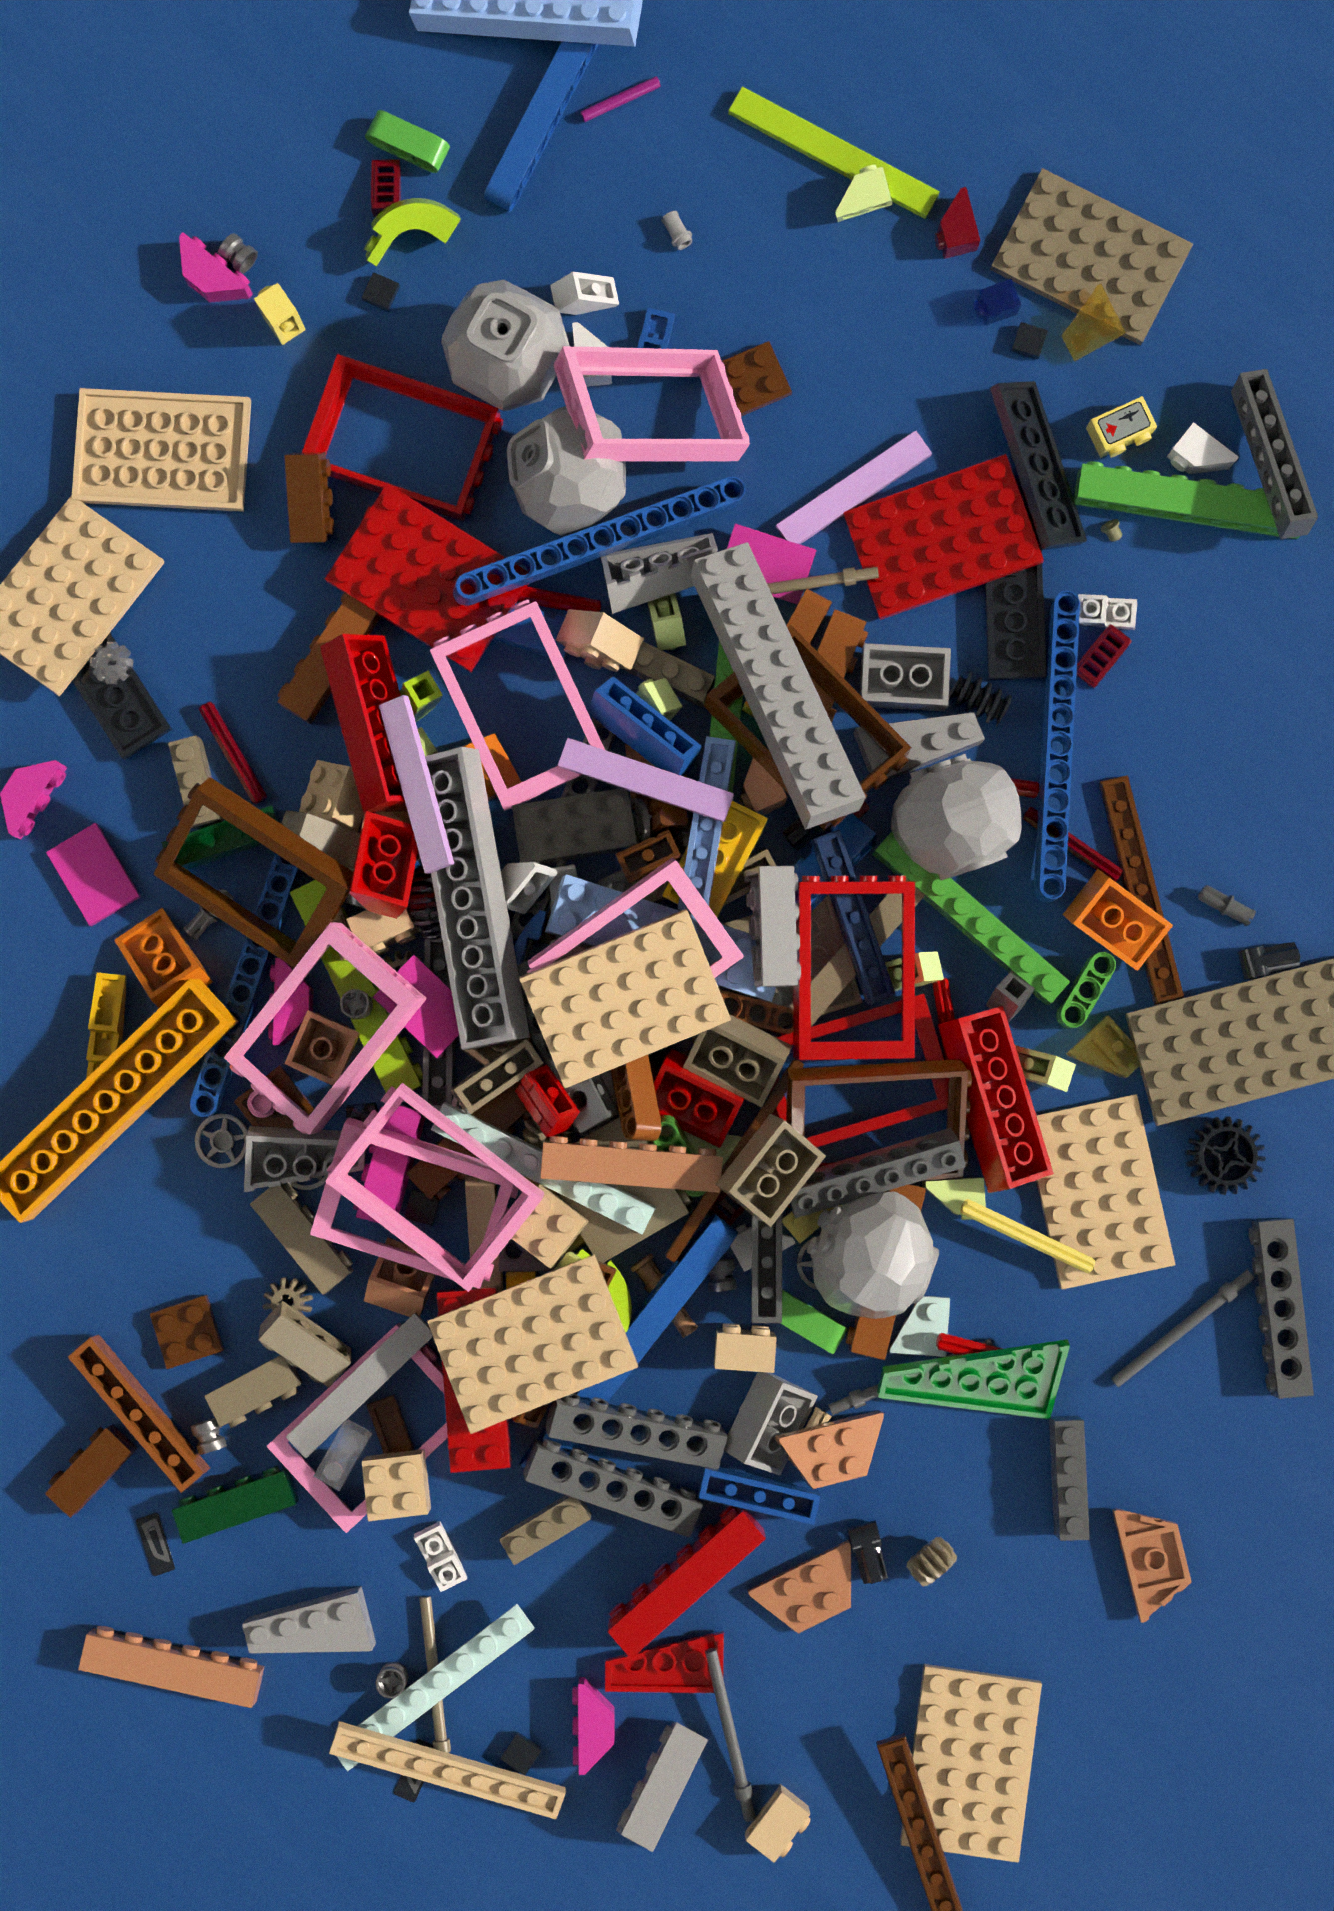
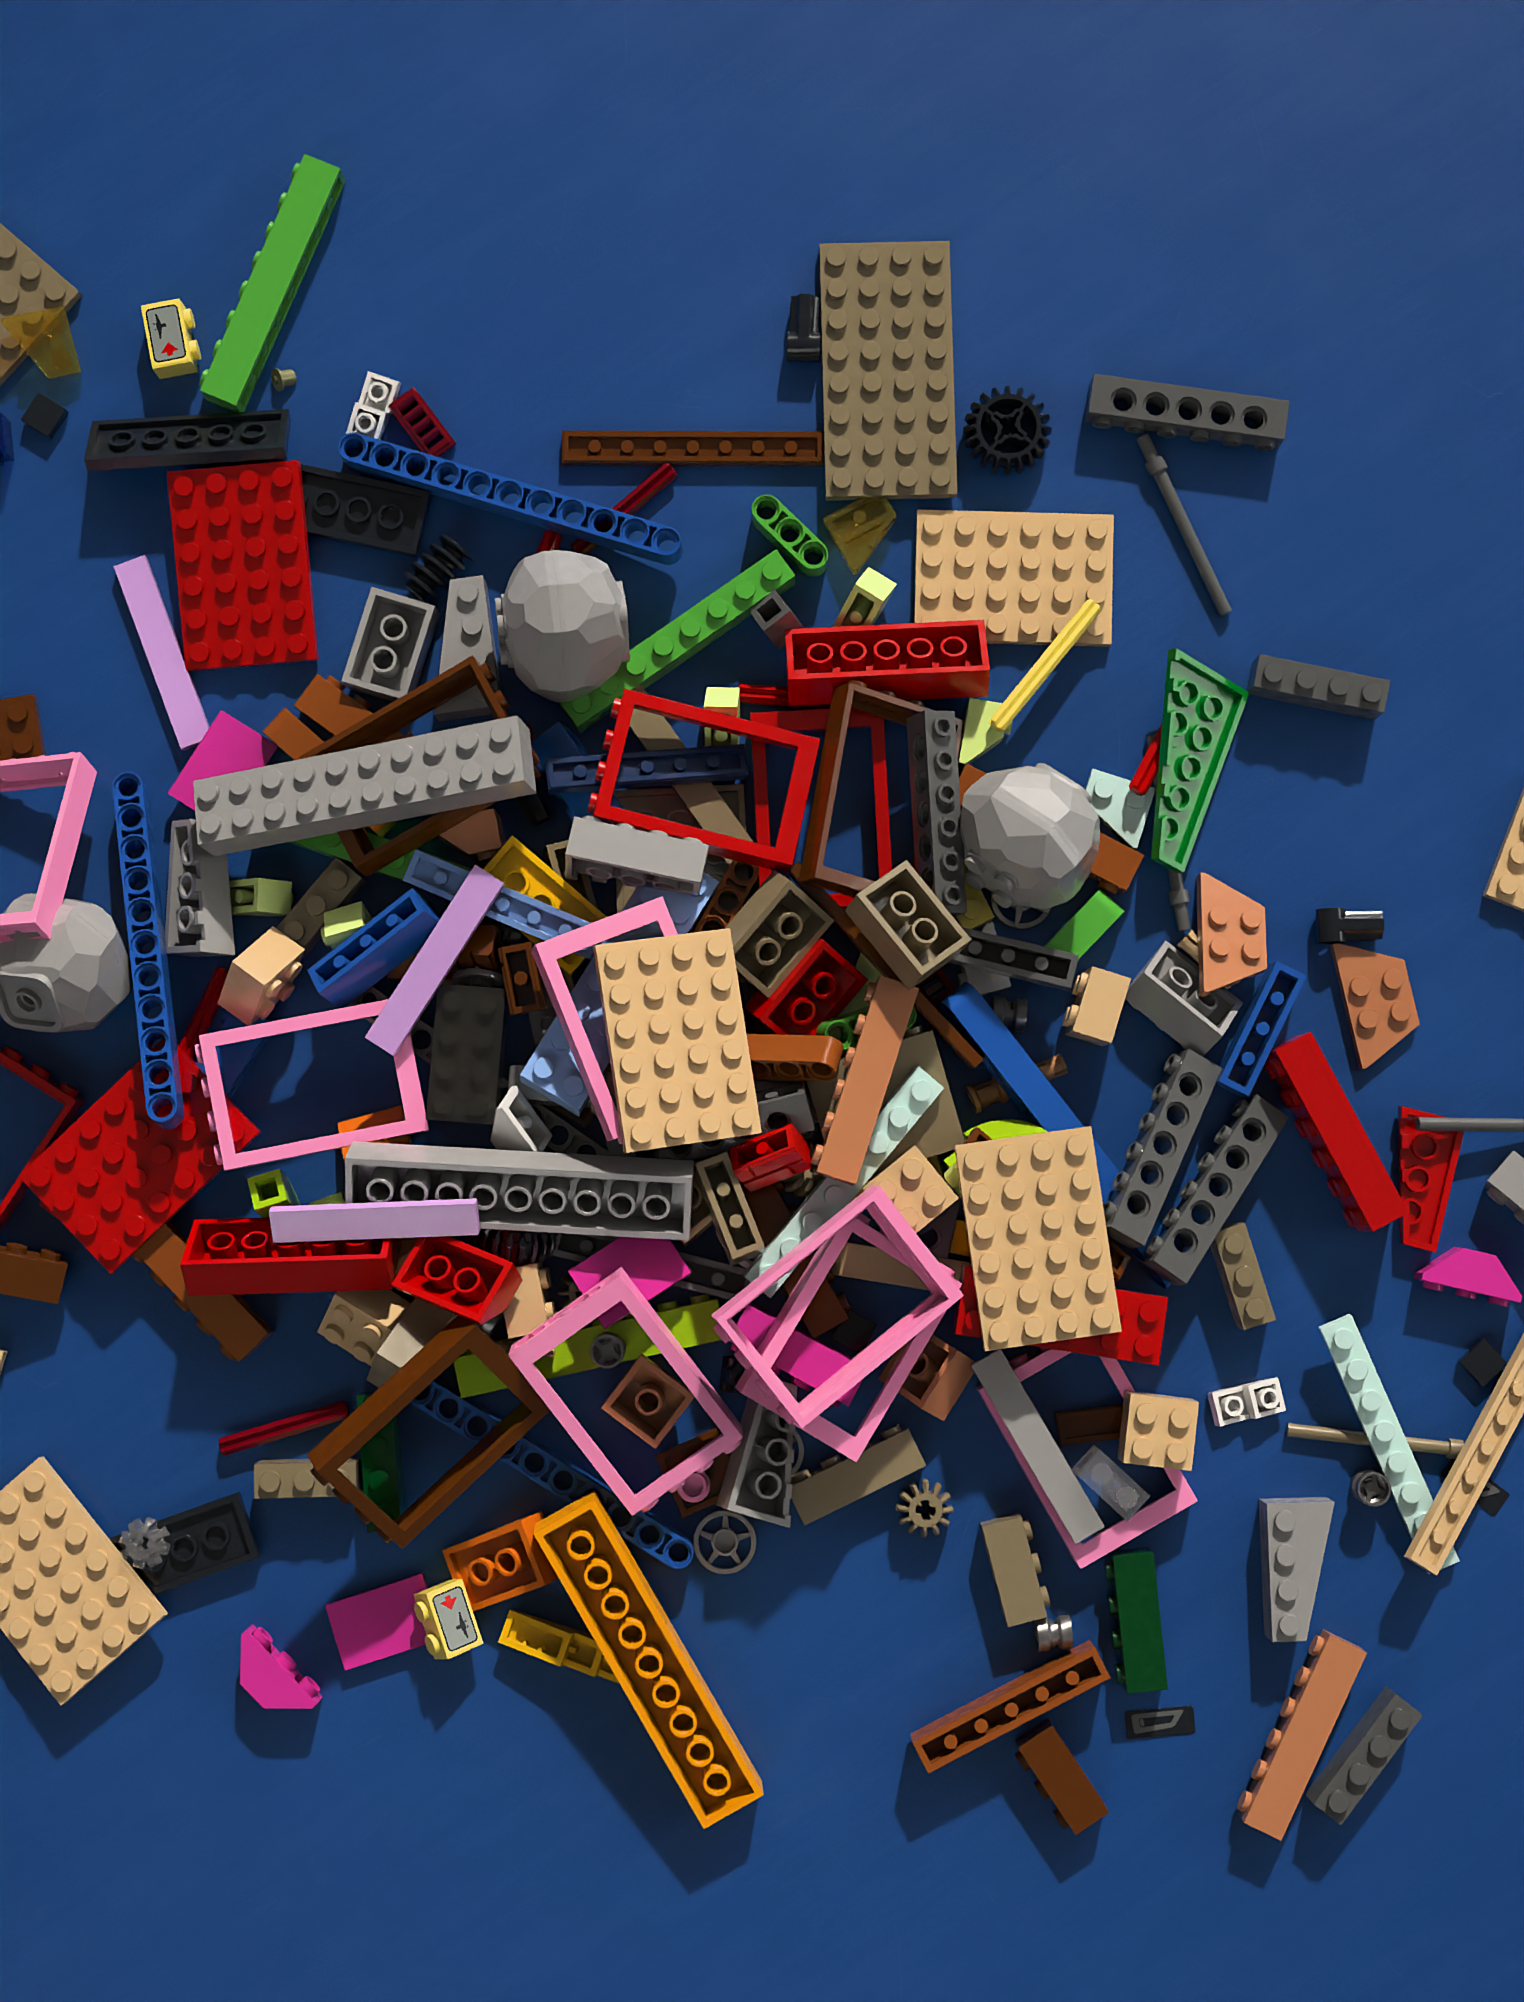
camera: 80 degrees left, 0 degrees up
(105, 926) = (447, 1619): none -> brick
(165, 1724) = (1363, 1755): none -> dark grey brick
(187, 1331) = (930, 1631): reddish brown plate -> none
(203, 919) = (467, 1506): dark grey axle -> none
(292, 1013) = (599, 1425): dark pink slope -> none
(304, 1344) = (977, 1498): dark tan brick -> none
(532, 931) = (575, 1131): blue slope -> none
(848, 576) = (261, 681): dark tan bar -> none
(931, 1561) = (1375, 858): dark tan gear -> none
(1117, 920) = (719, 481): orange slope -> none
(1152, 1559) = (1426, 620): nougat wing -> none
(1200, 453) = (221, 259): white slope -> none
(1226, 905) = (732, 359): dark grey axle -> none
(1274, 454) = (244, 177): dark grey brick -> none

